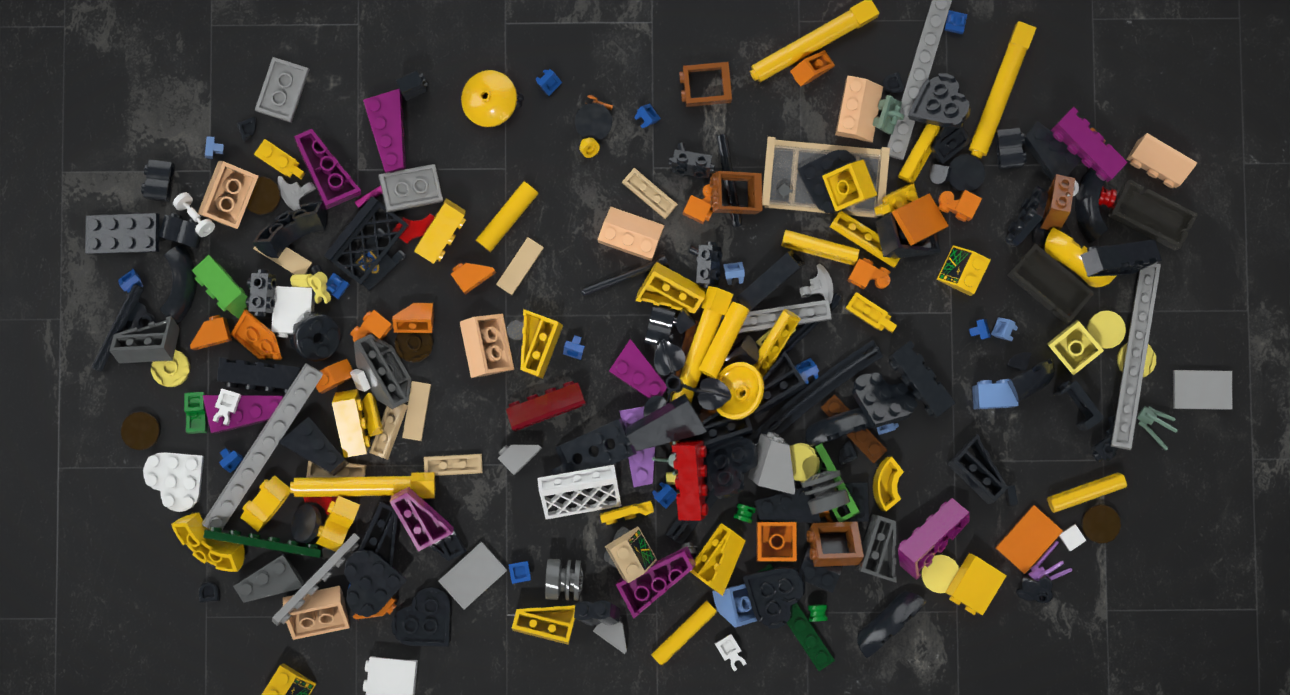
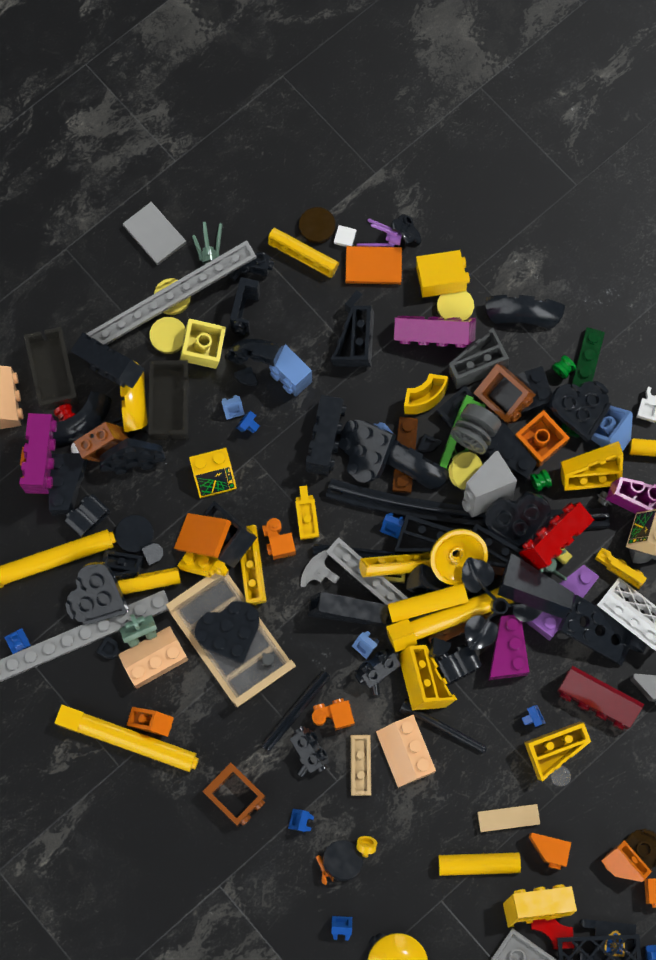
camera: 130 degrees left, 10 degrees down
(486, 345) = (594, 788): light nougat slope -> none
(665, 496) = (581, 549): blue tile -> none
(754, 192) = (292, 679): dark orange window -> none
(820, 247) = (288, 595): yellow brick -> none
(849, 185) = (222, 609): yellow slope -> none
(962, 208) = (162, 512): orange brick -> none

